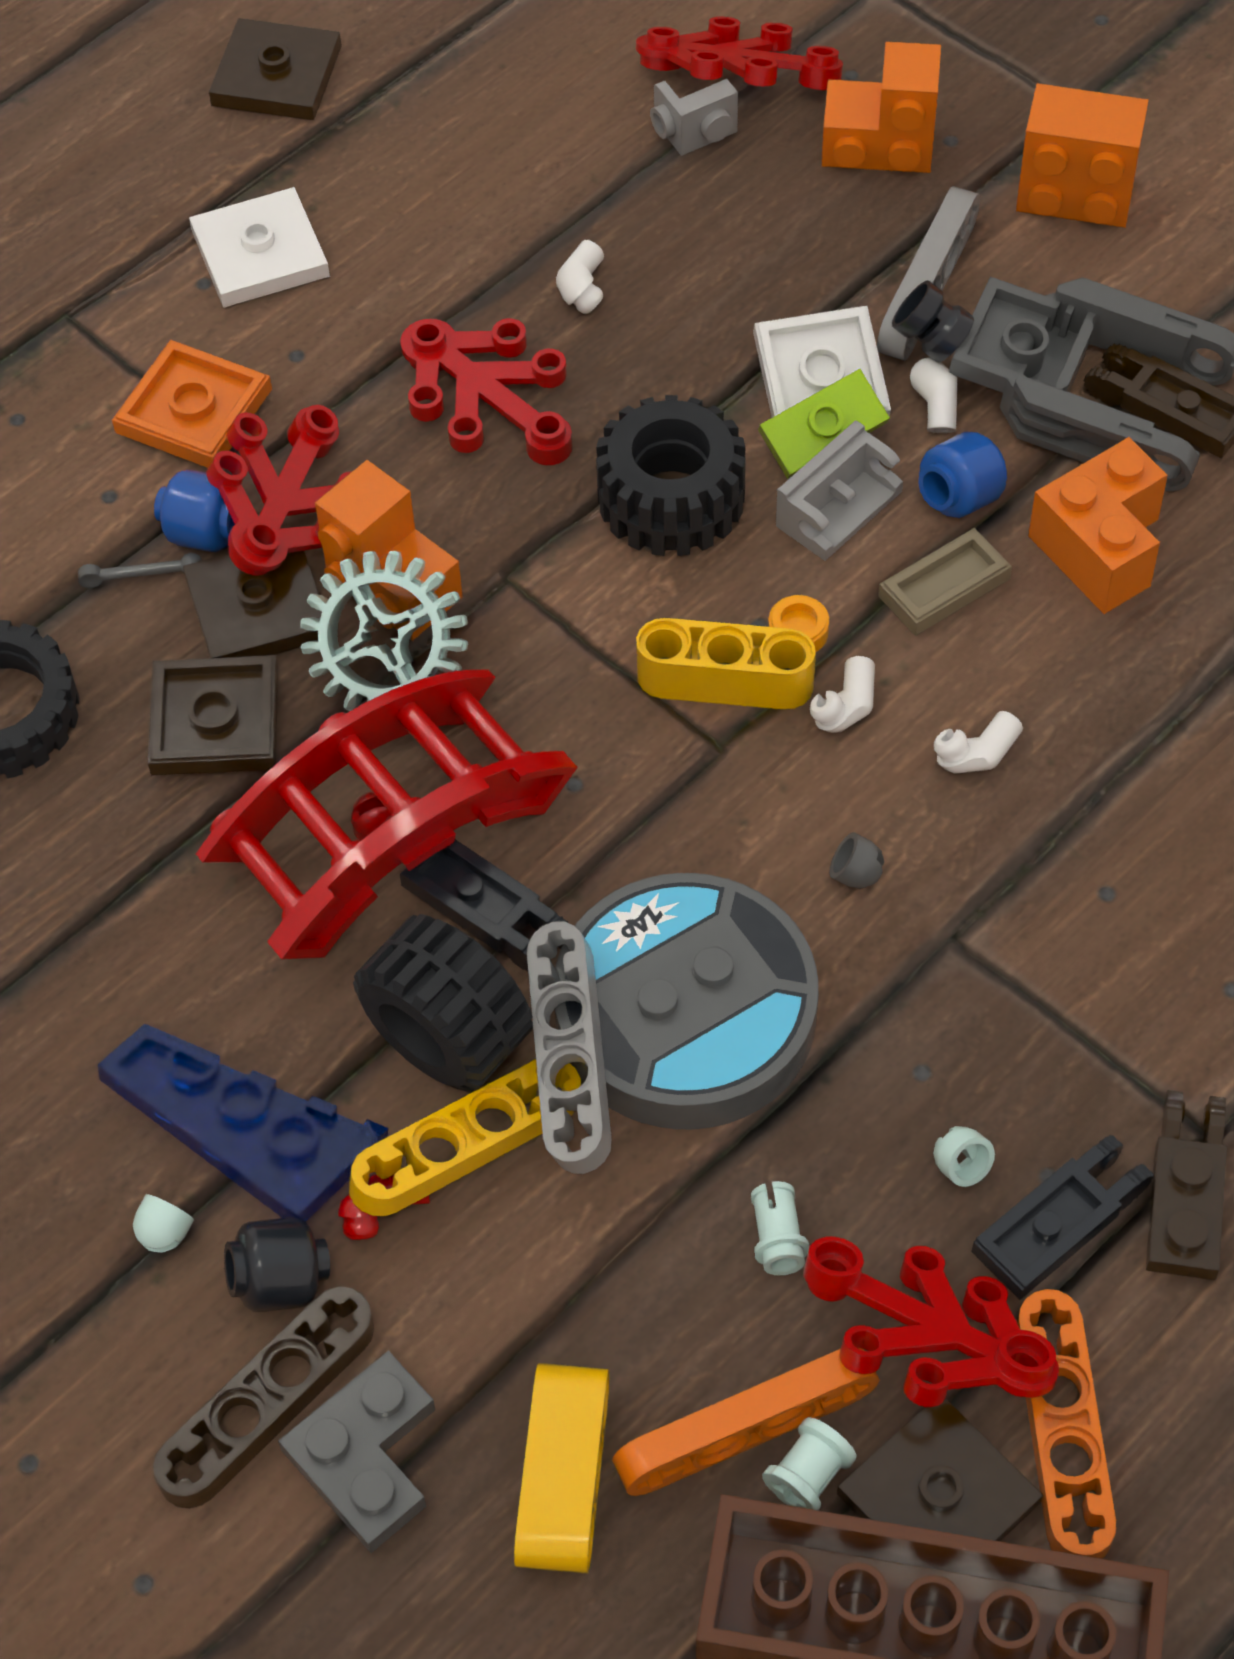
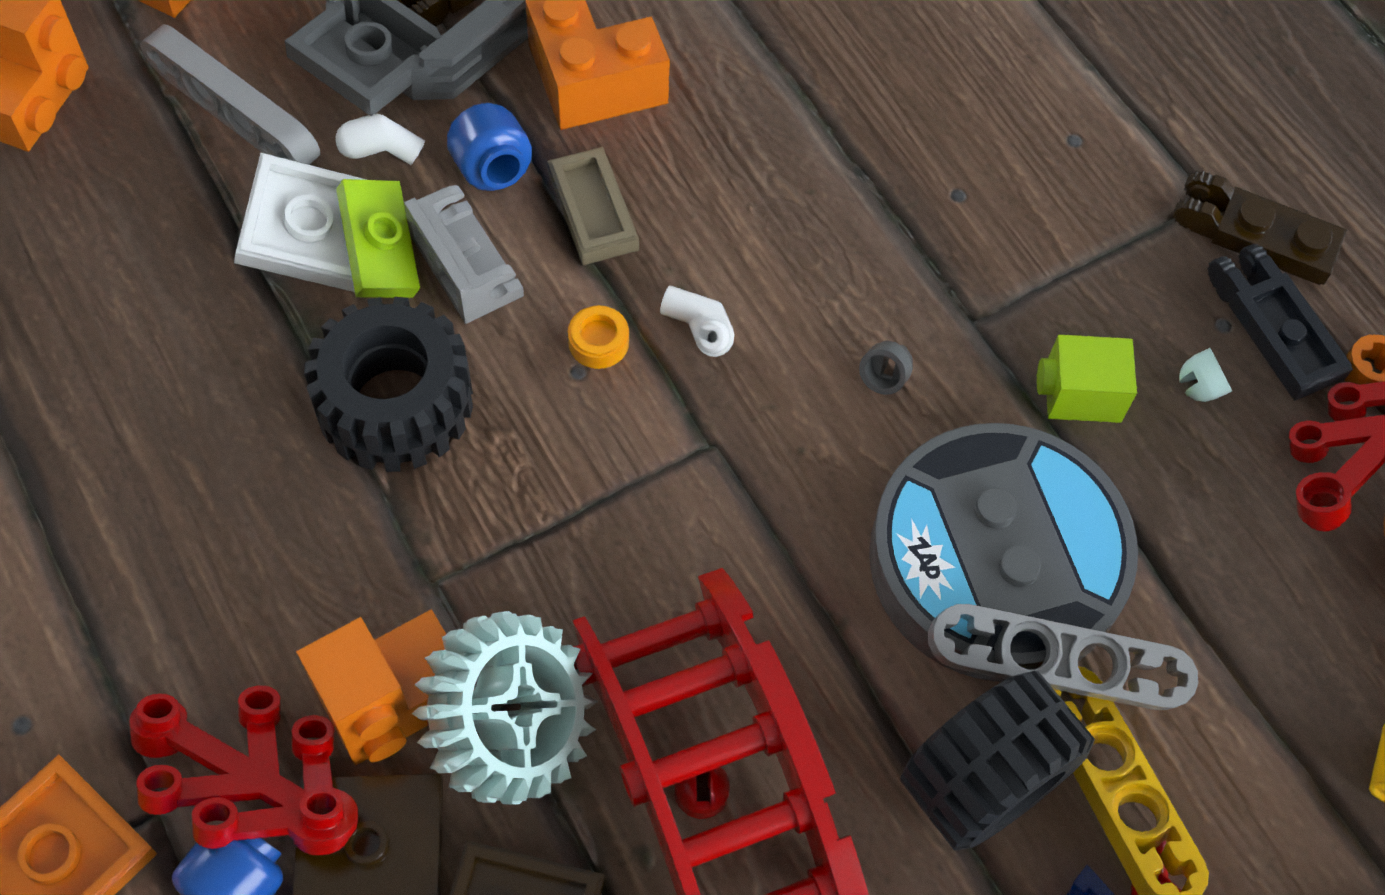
camera: 80 degrees left, 5 degrees up
(435, 346) = (168, 536): red plant -> none
(480, 899) = (858, 694): black hinge -> none
(575, 277) = (71, 406): white arm -> none
(754, 668) = (633, 431): yellow beam -> none
(780, 1243) = (1257, 541): light aqua pin -> none
(908, 1037) = (1088, 378): none -> lime brick
(932, 321) = (319, 100): black wheel -> none
(964, 754) = (794, 234): white arm -> none

